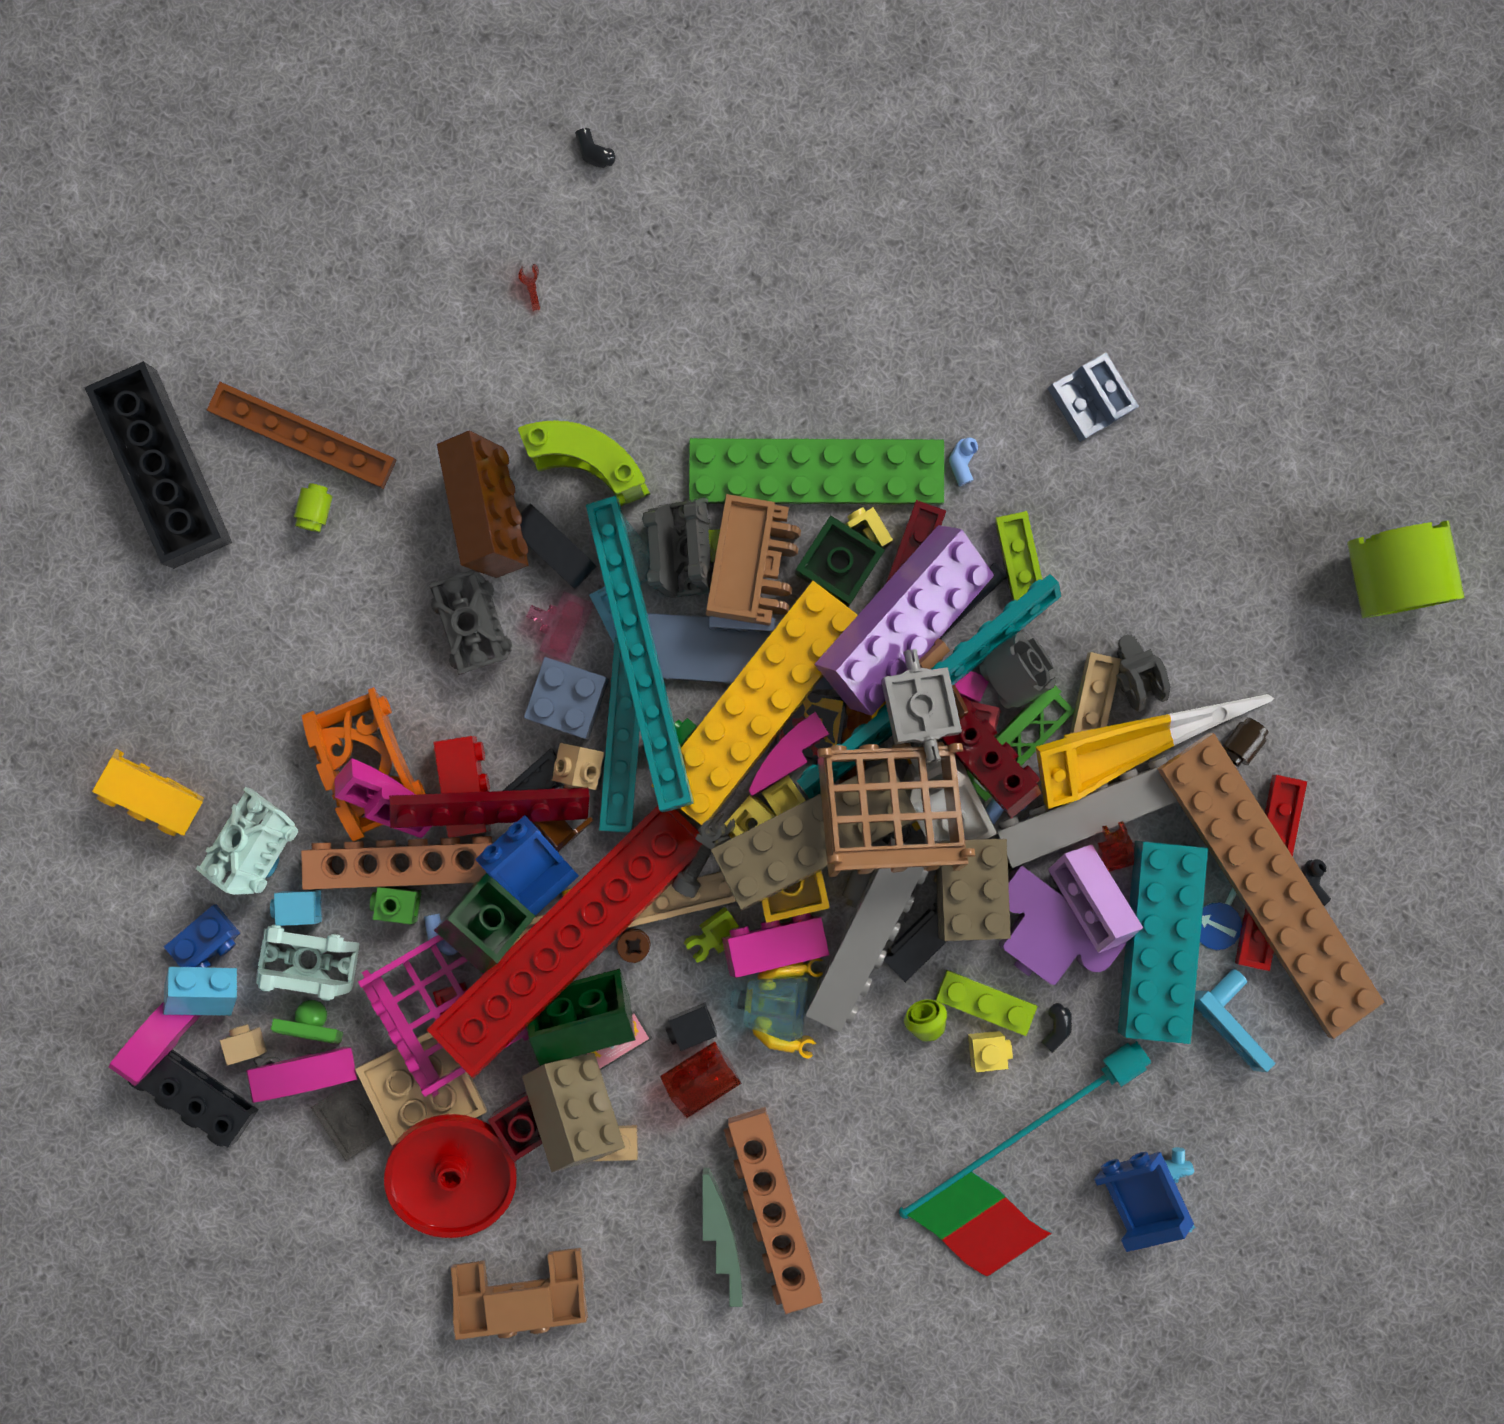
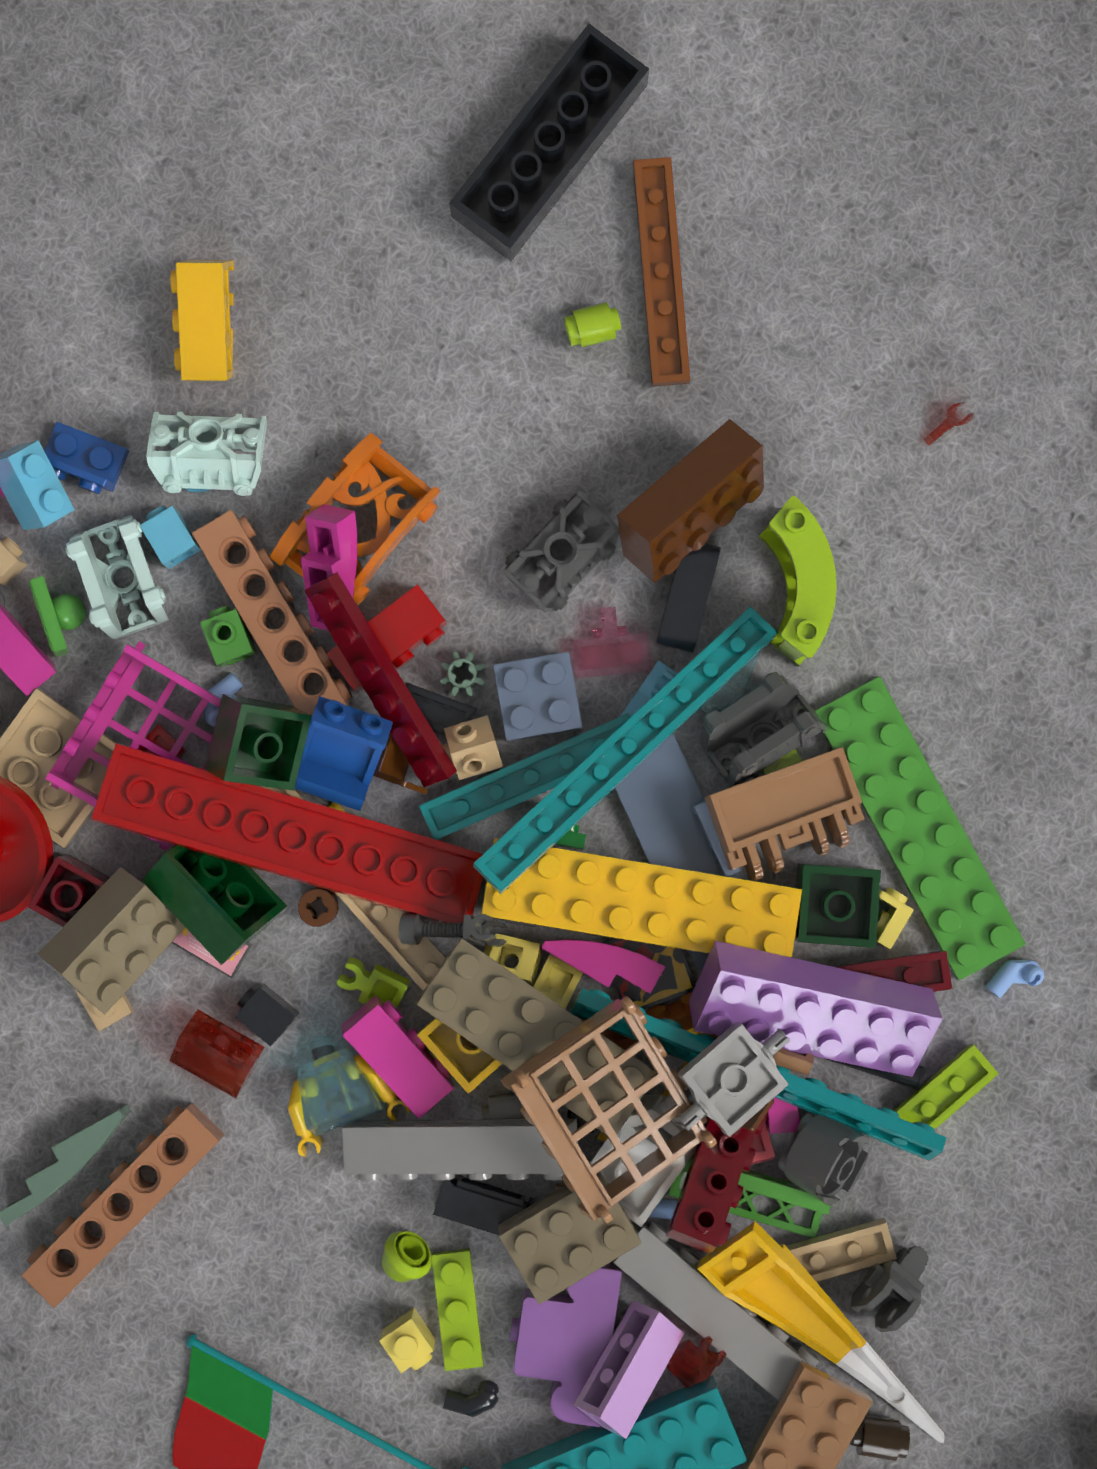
camera: 60 degrees right, 0 degrees up
(510, 743) = (466, 684): none -> sand green gear

